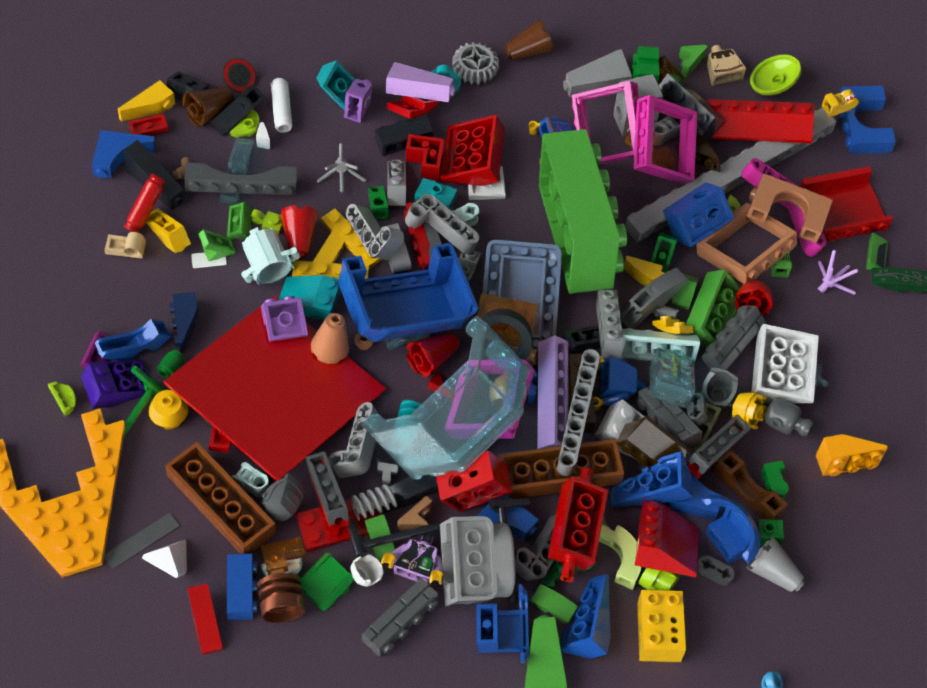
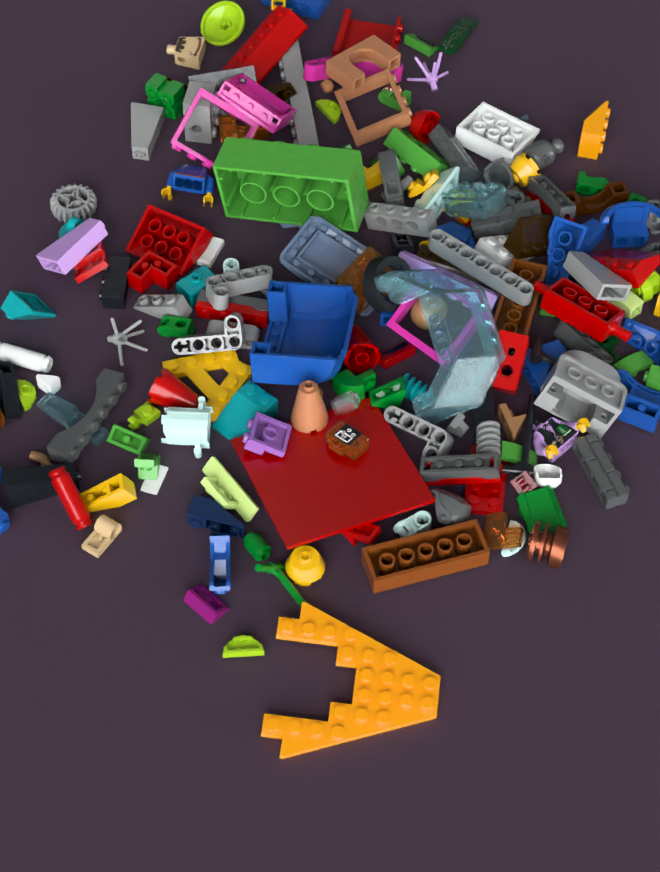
camera: 60 degrees left, 5 degrees down
(112, 383) = (252, 598): dark purple slope -> none
(141, 540) = (428, 639): dark grey sticker -> none
(170, 558) = (460, 621): white slope -> none
(204, 619) = (536, 613): red slope -> none
(216, 313) = (227, 490): none -> yellowish green bracket
(241, 586) = (517, 575): blue brick -> none
(311, 384) = (346, 440): none -> clear orange piece
(343, 551) = (524, 482): none -> tile
(360, 92) = (58, 297): medium lavender torso -> none
(360, 367) = (345, 402): none -> clear brick
(385, 367) = (347, 381): none -> green brick
(388, 398) = (388, 394): none -> green slope
(529, 42) = (80, 155): reddish brown cone -> none
(622, 521) = (596, 278): none -> light grey slope
(691, 58) = (168, 67): bright green slope -> none
(698, 214) = (331, 119): blue piece -> none

